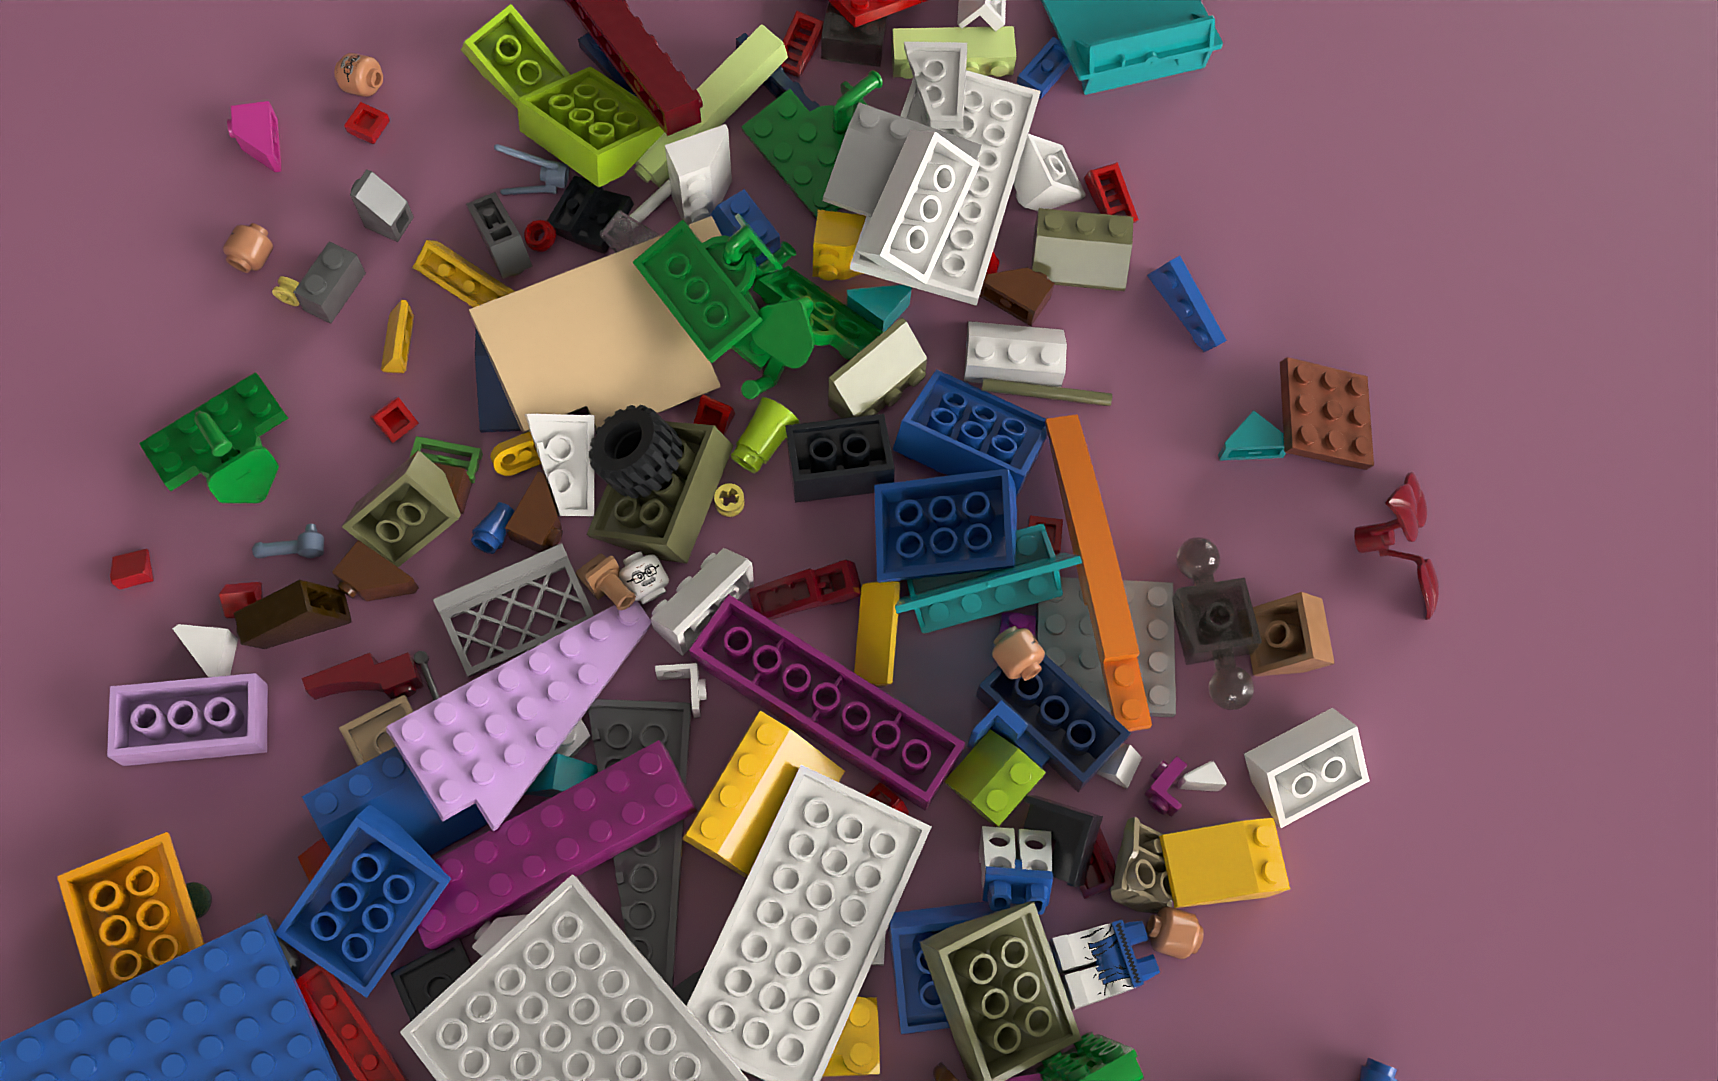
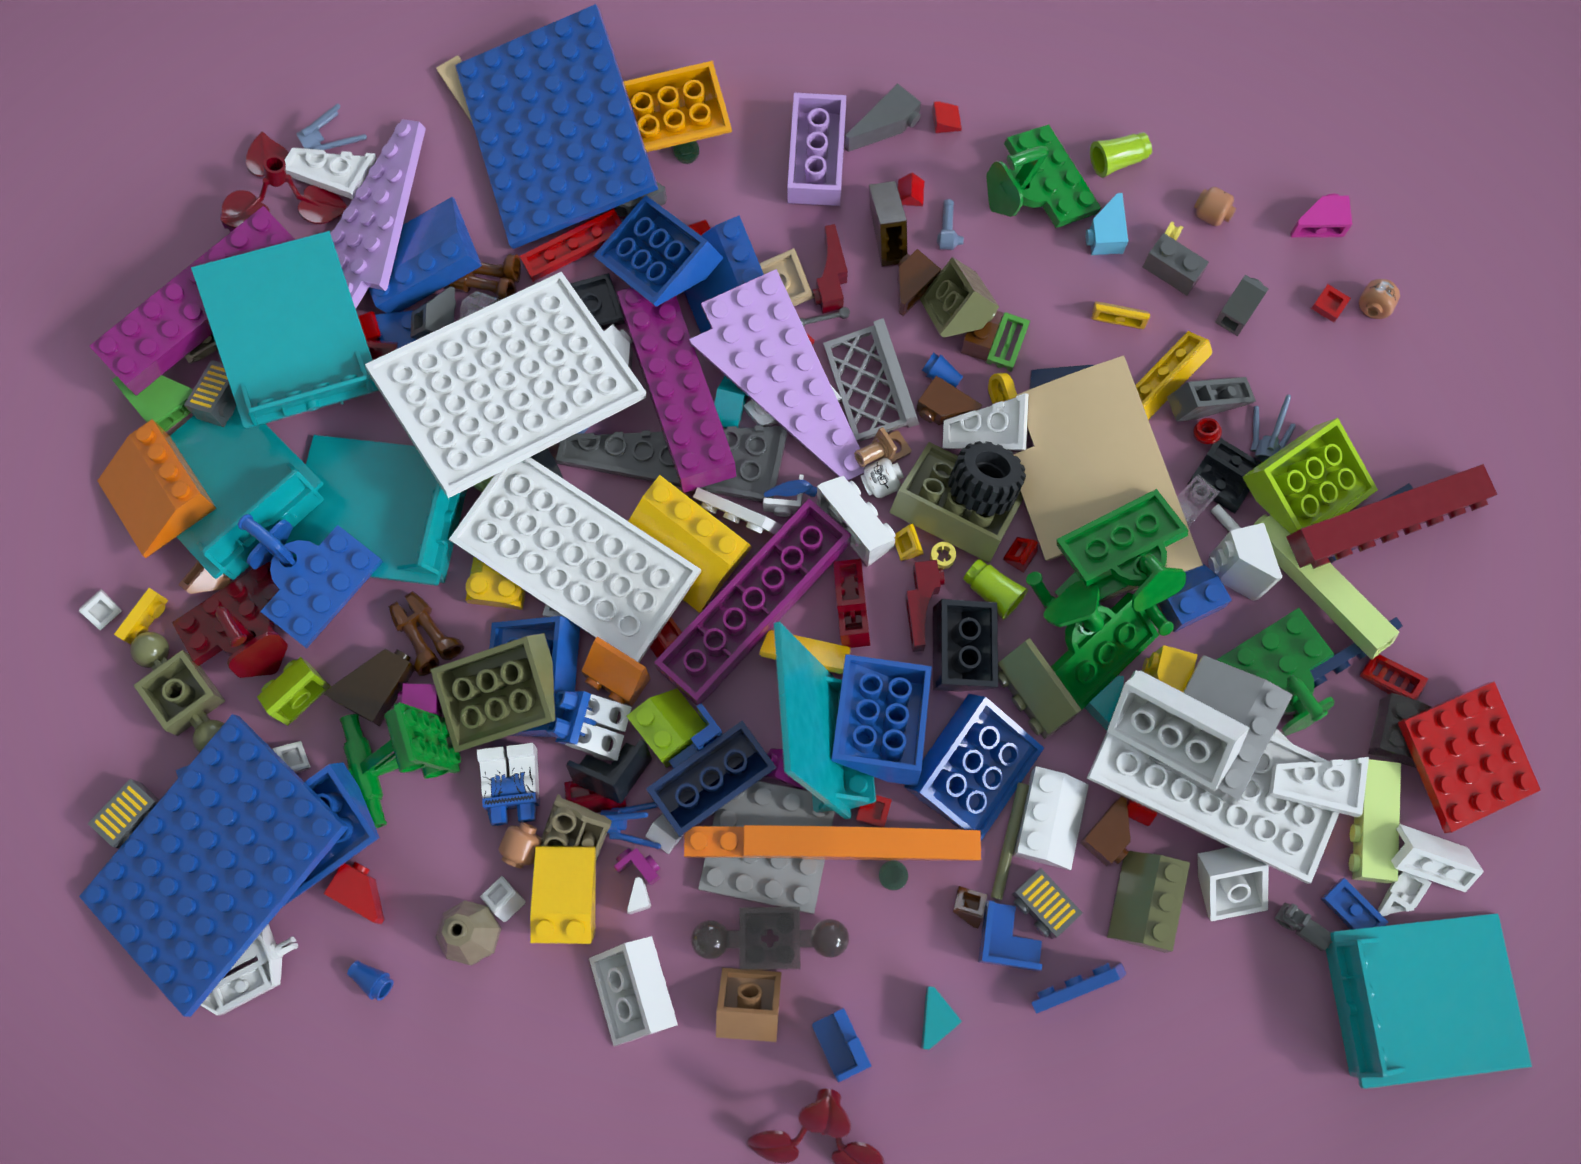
camera: 105 degrees right, 5 degrees up
(135, 636) = (886, 119): none -> dark grey slope
(180, 358) = (1119, 152): none -> lime plant
(210, 647) = (869, 166): white slope -> none
(284, 358) = (1109, 229): none -> medium azure slope
(394, 419) = (1048, 306): red slope -> none
(512, 56) = (1389, 426): lime slope -> none
(676, 678) = (792, 488): none -> blue bar
(703, 773) = (736, 512): none -> white wing
(719, 537) = (908, 543): none -> yellow slope
(767, 511) = (927, 583): none -> dark red slope
(945, 853) = (614, 672): none -> orange slope
(1018, 653) = (759, 752): nougat head -> none
(1025, 28) = (1404, 894): none -> white slope
(1073, 109) = (1295, 919): none -> dark grey bar
(1107, 346) = (1046, 904): none -> dark grey brick
(1113, 173) = (1219, 953): red slope -> none
(1114, 505) = (893, 875): none -> clear green plate
(1117, 820) = (619, 822): none -> blue plant
(1124, 423) = (970, 906): none -> reddish brown slope
(1162, 387) = (1000, 946): none -> blue panel
(1238, 945) = (503, 899): none -> white slope
(1288, 978) = (478, 934): none -> dark tan cone
(1311, 529) = (841, 1045): none -> blue panel
(1326, 414) = (952, 1094): copper plate -> none

